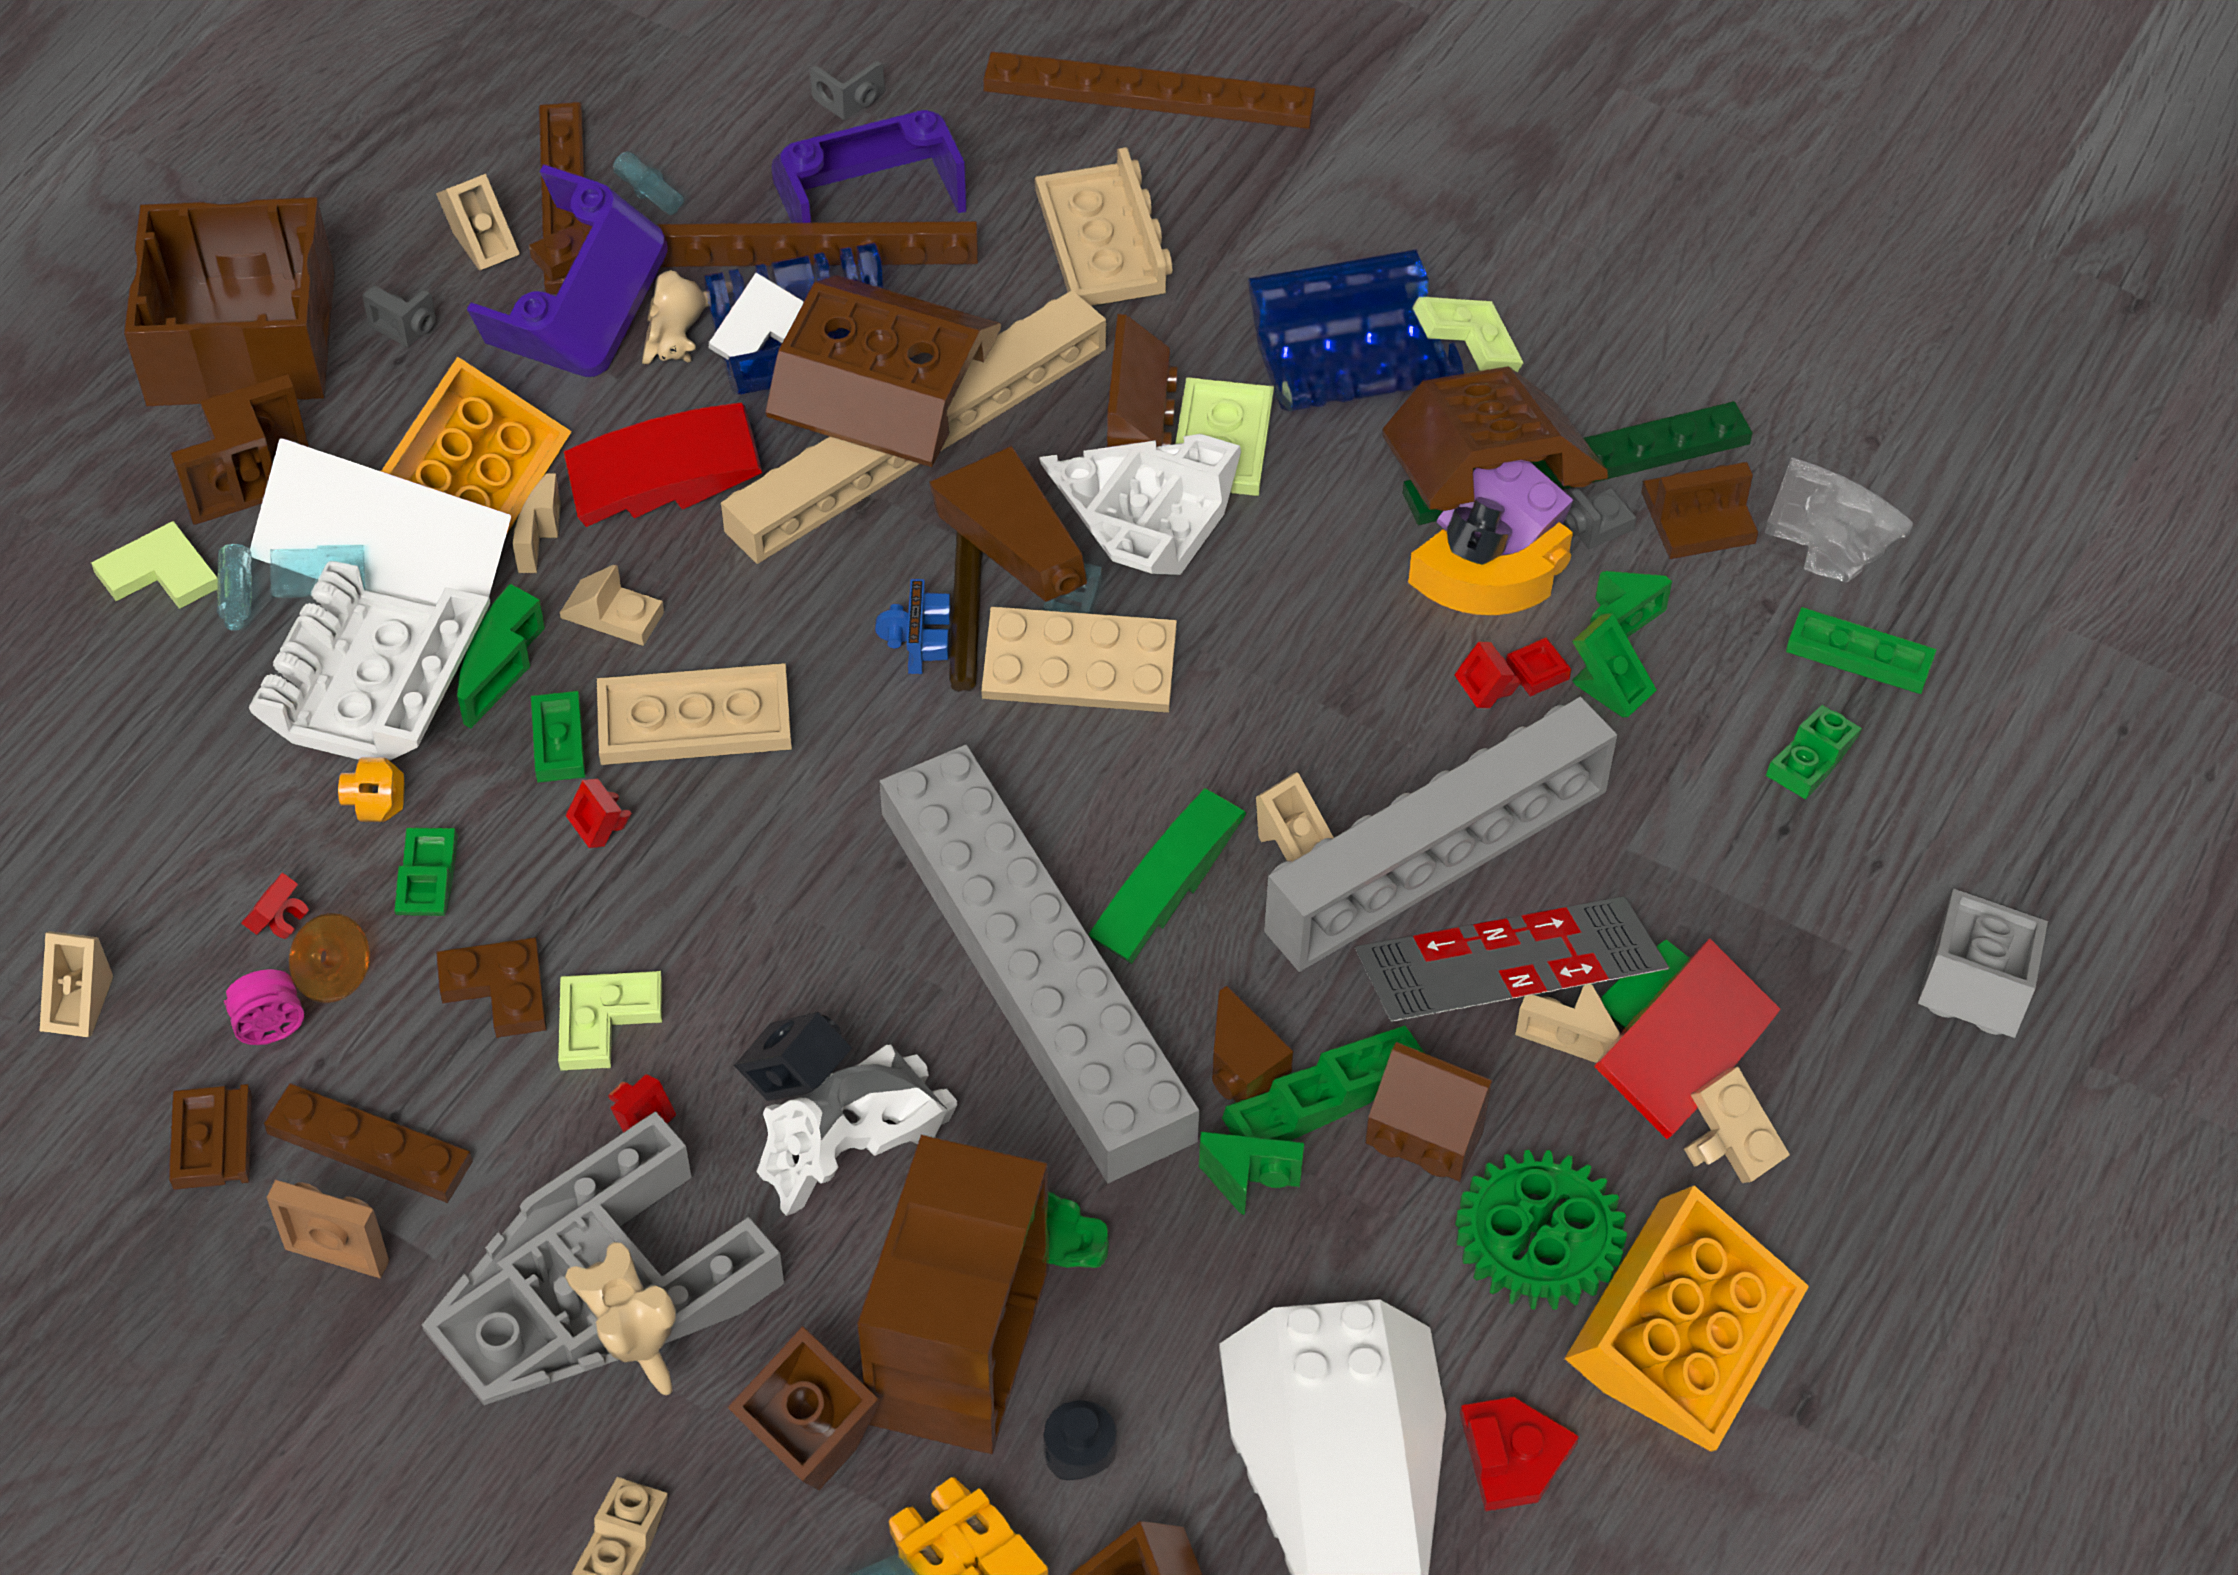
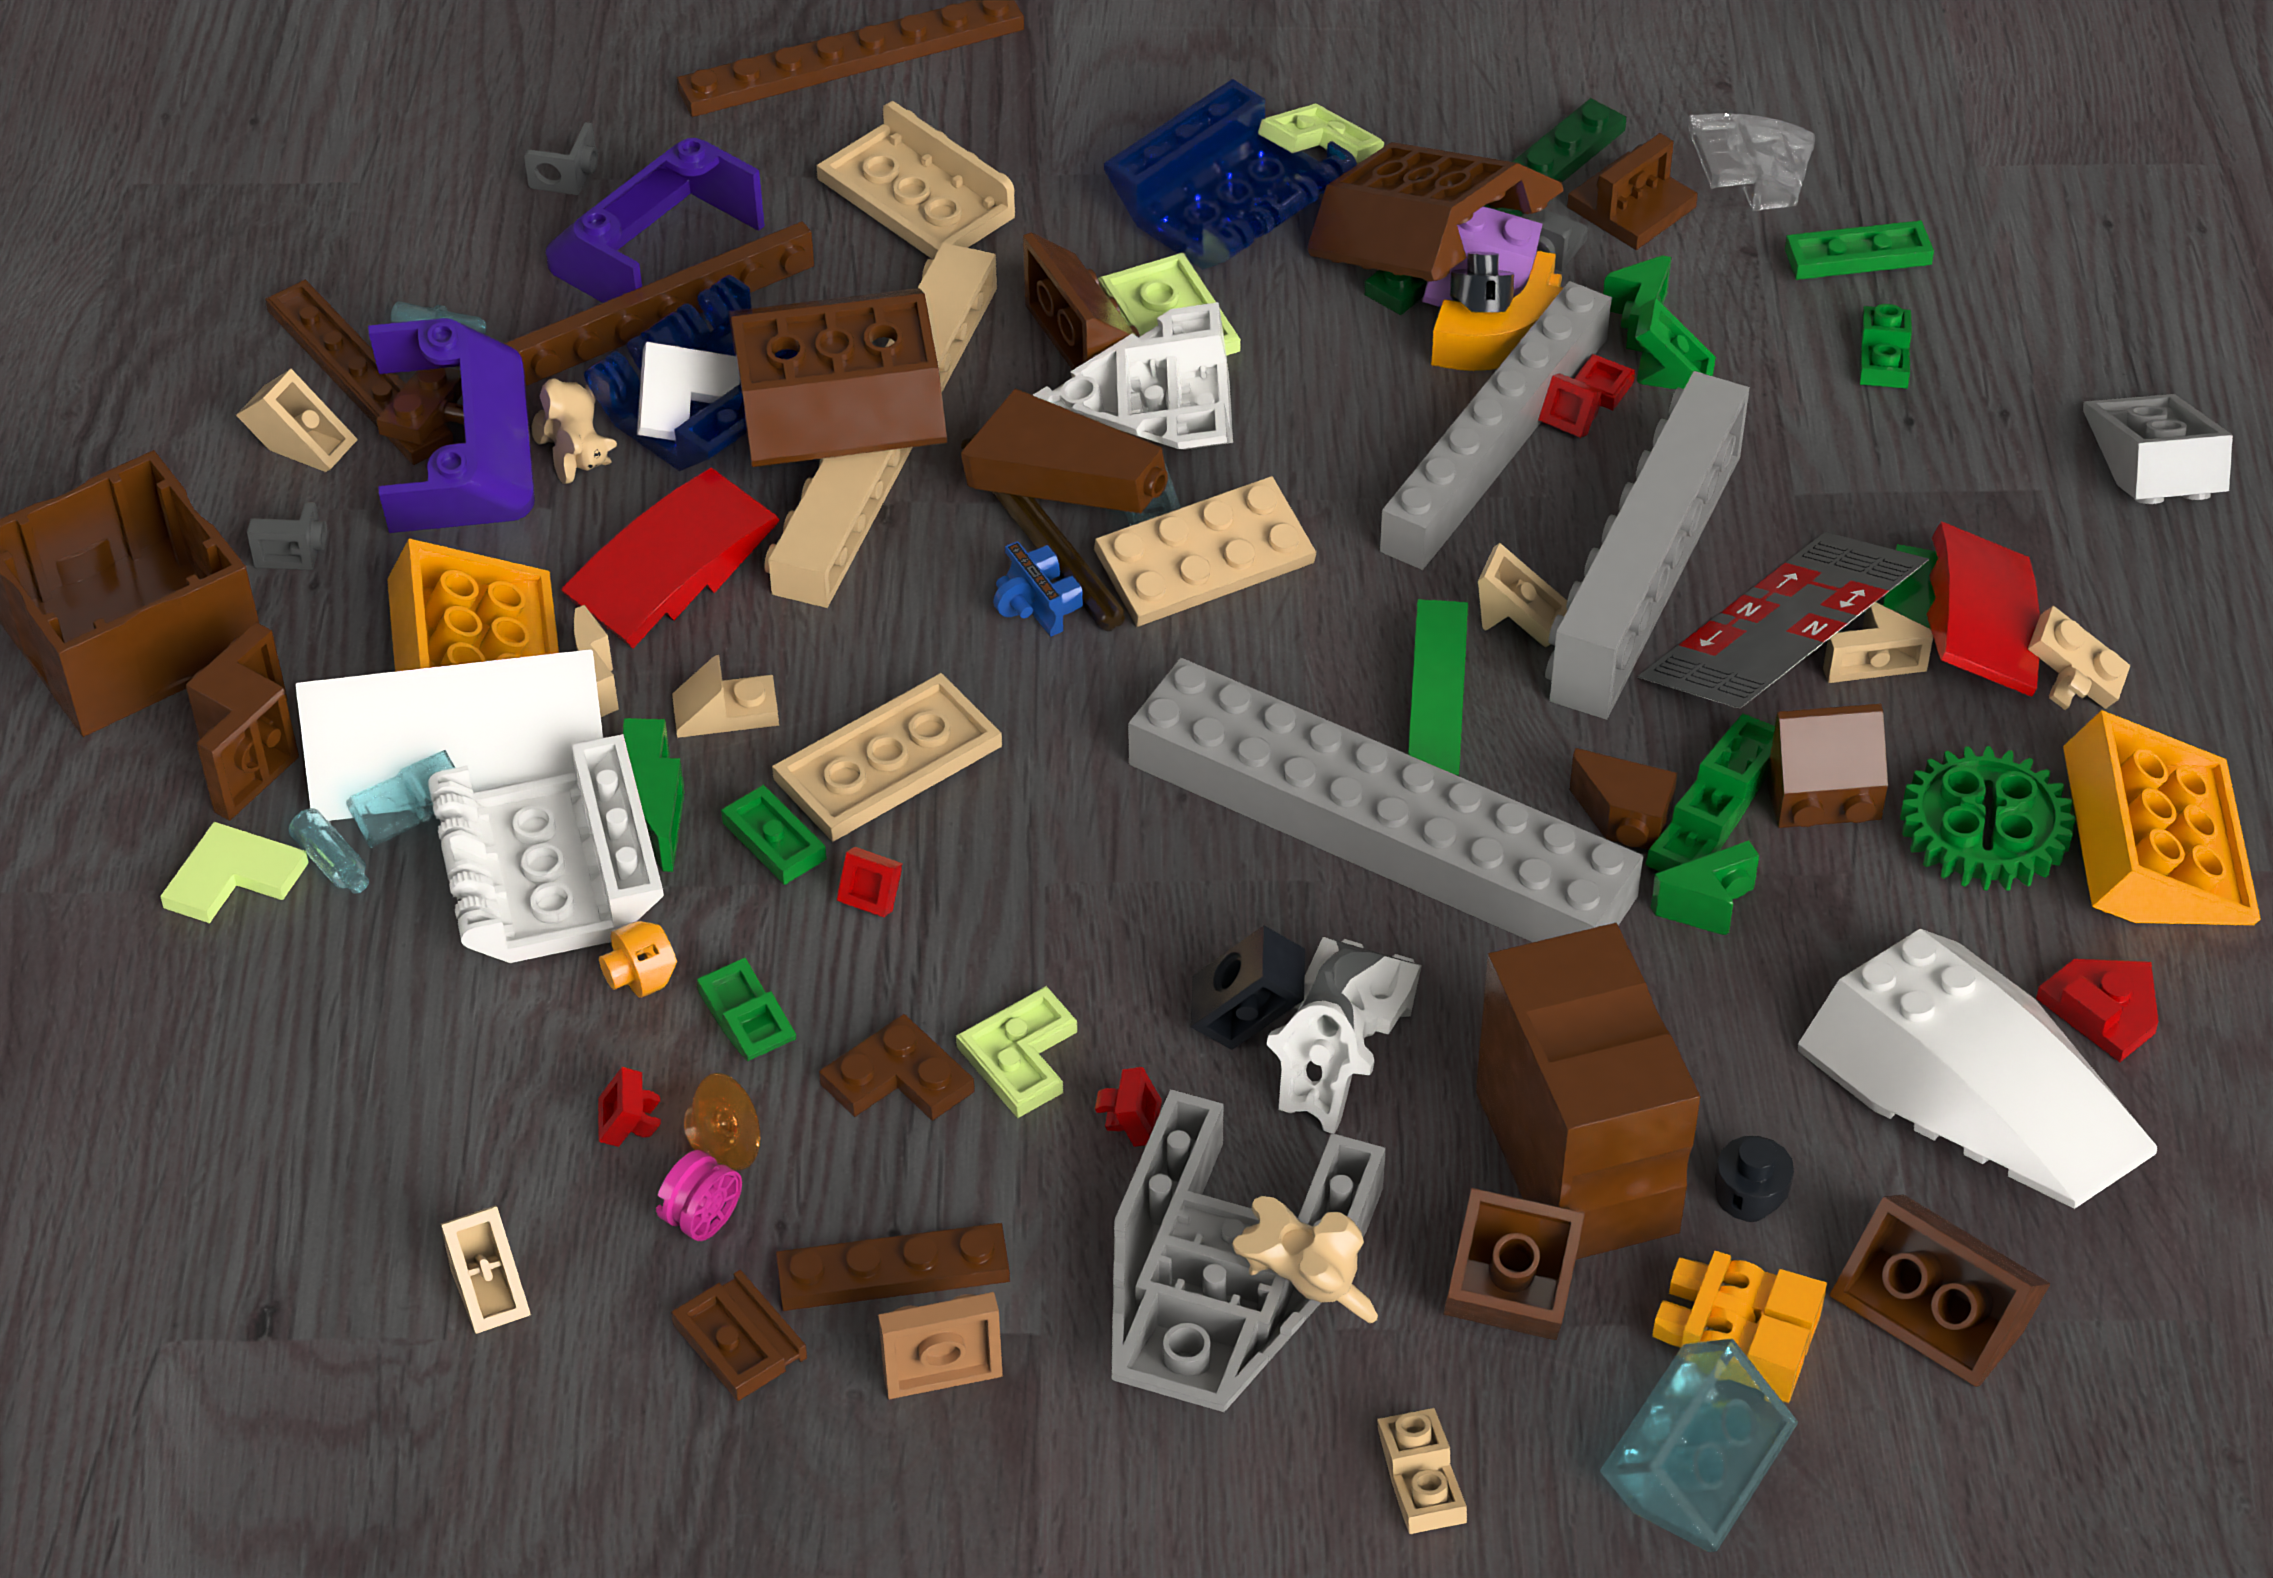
camera: 30 degrees left, 5 degrees down
(1402, 662) = (1492, 427): none -> light grey brick

